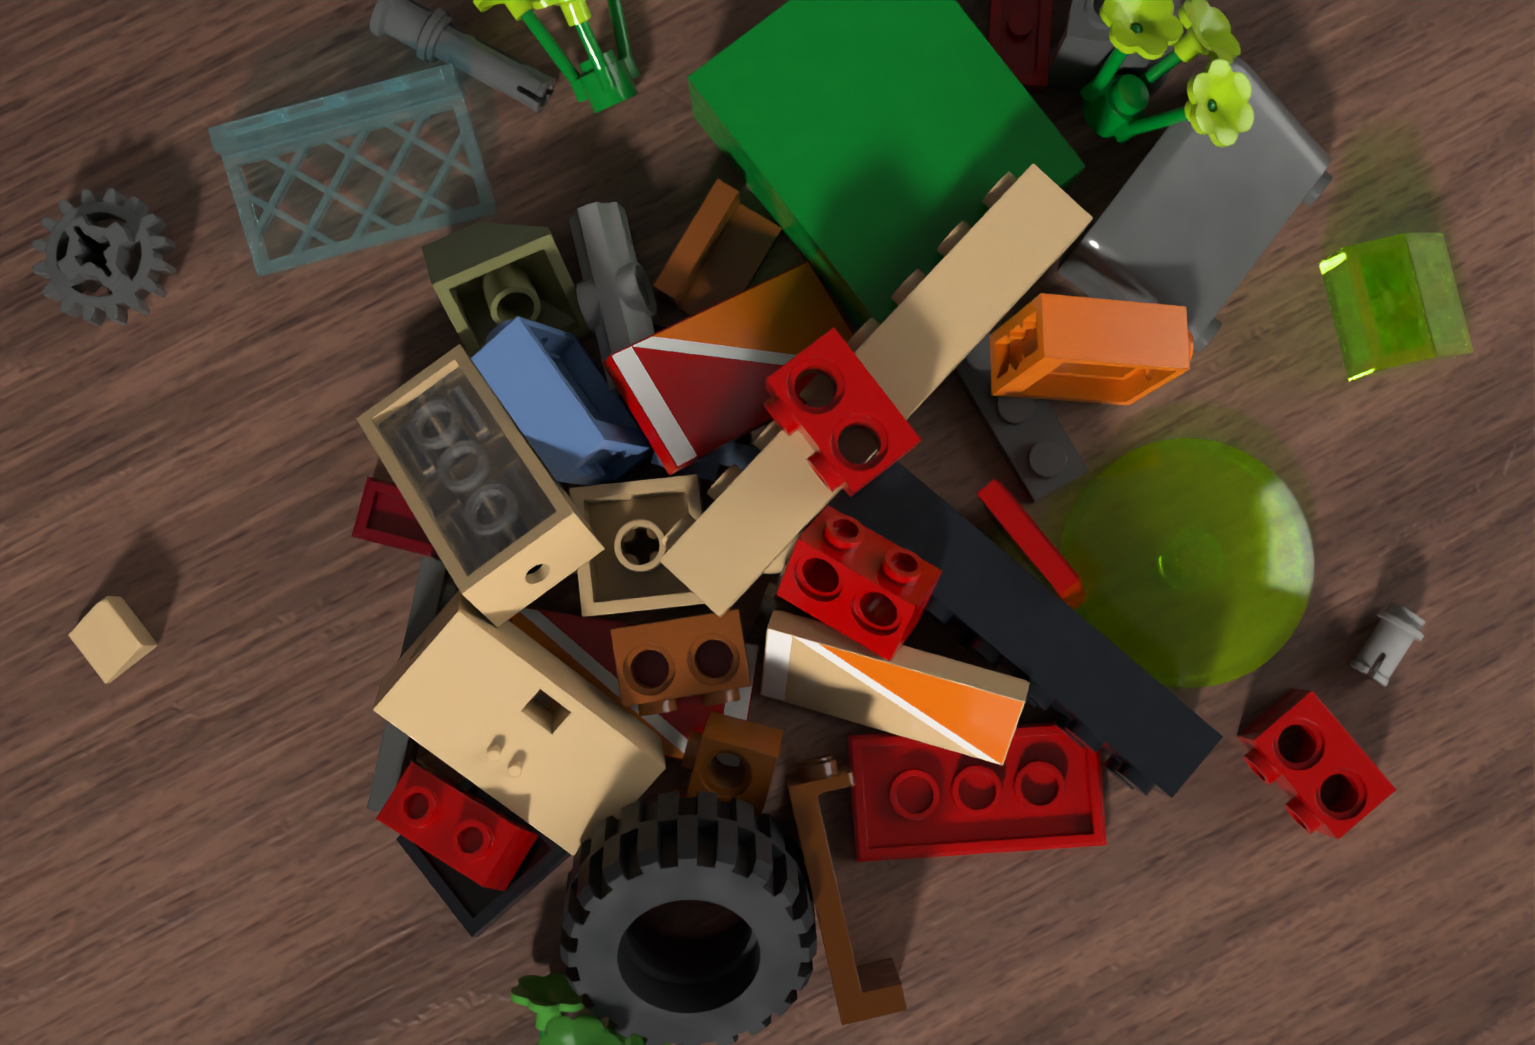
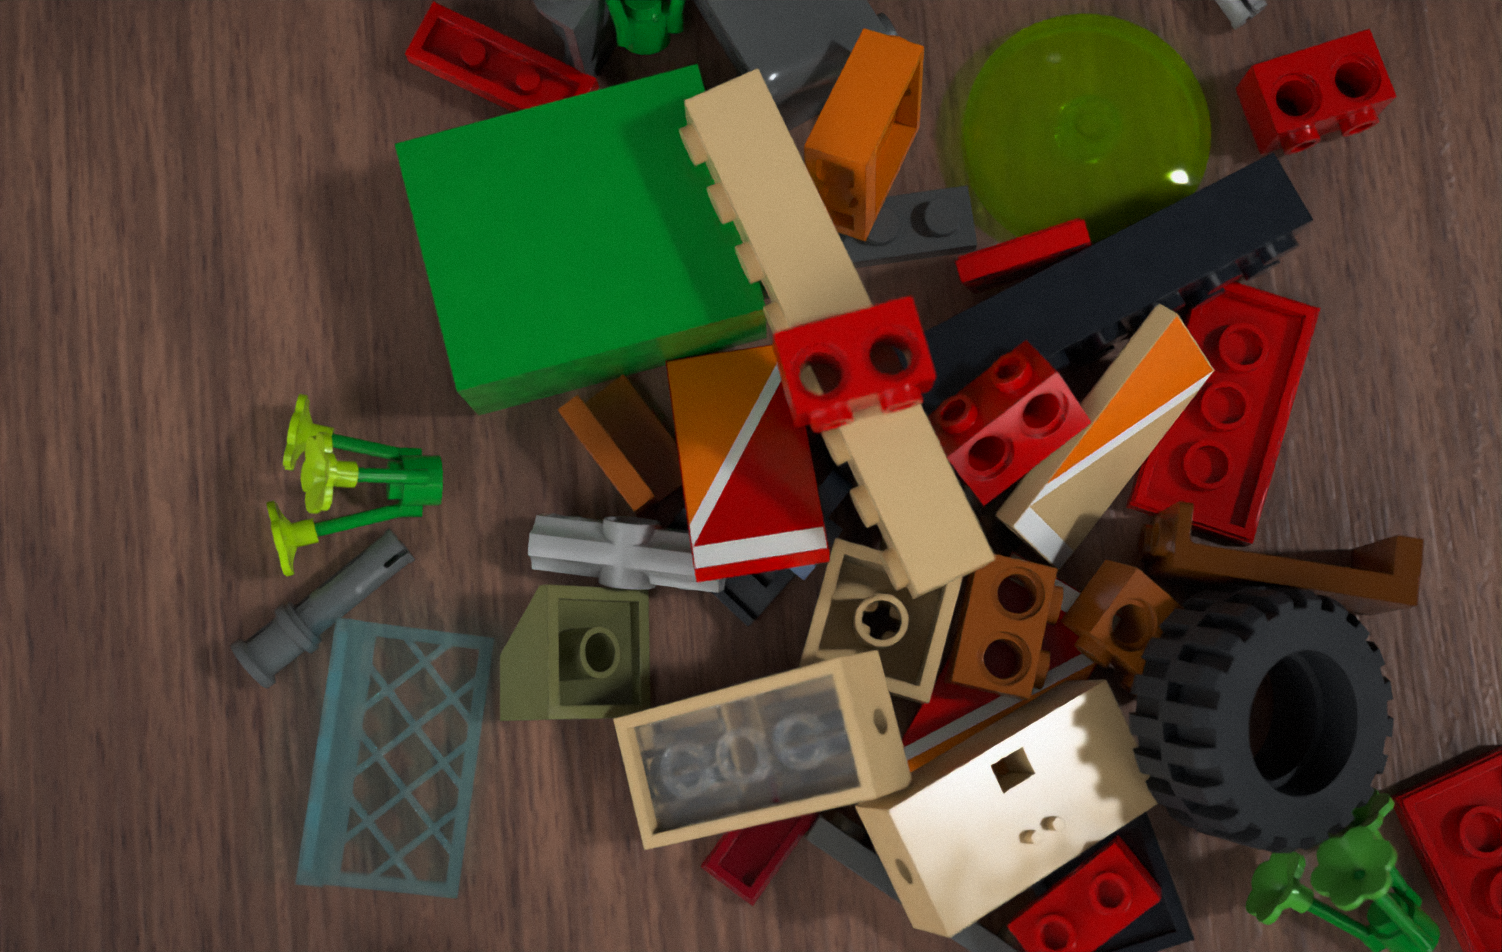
camera: 65 degrees left, 5 degrees down
(562, 403) = (713, 640): medium blue window -> none

